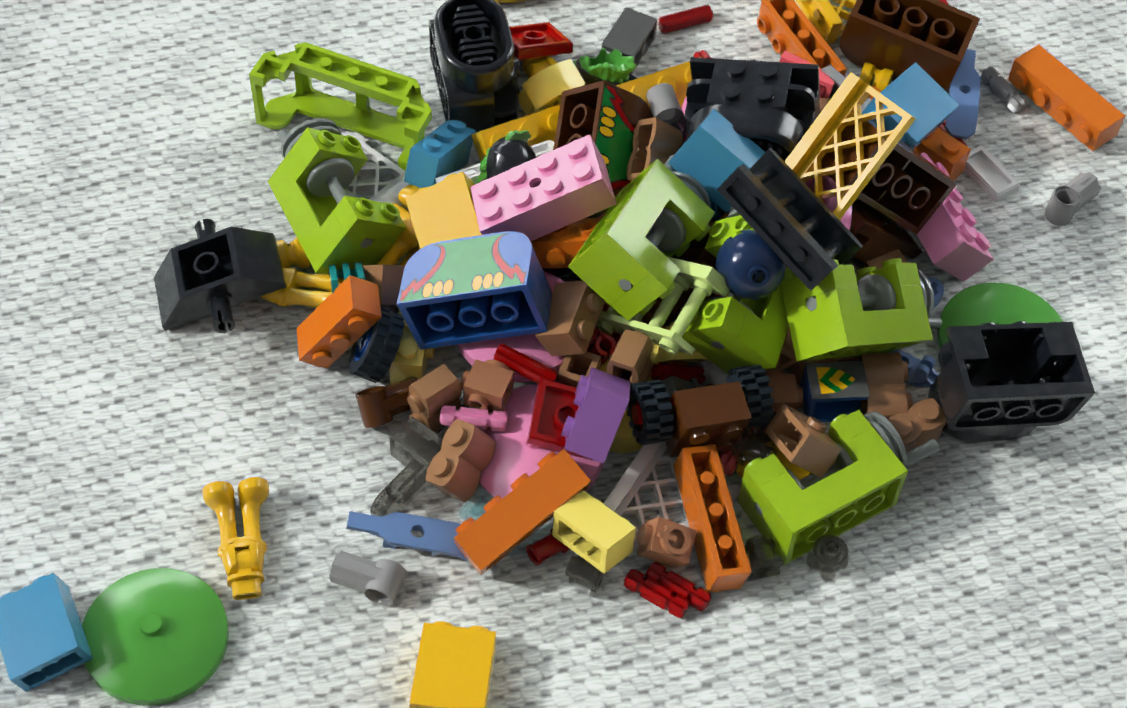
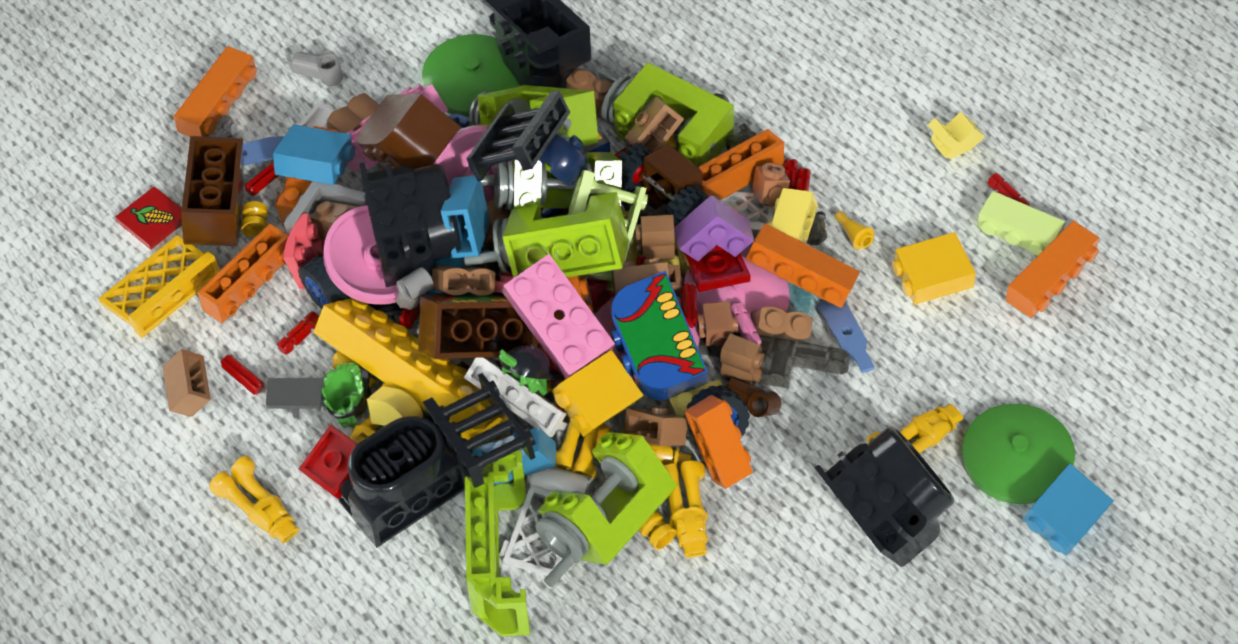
camera: 110 degrees left, 0 degrees up
(168, 438) = (890, 494): none -> black brick
(216, 275) = (731, 581): black slope -> none
(344, 273) = (676, 444): teal tile -> none
(375, 579) = (896, 346): light grey piece -> none
(461, 81) = (462, 448): none -> black fence
(555, 619) = (858, 233): none -> yellow cone
(827, 129) = (418, 141): yellow fence -> none
(982, 202) = (351, 115): none -> medium nougat brick

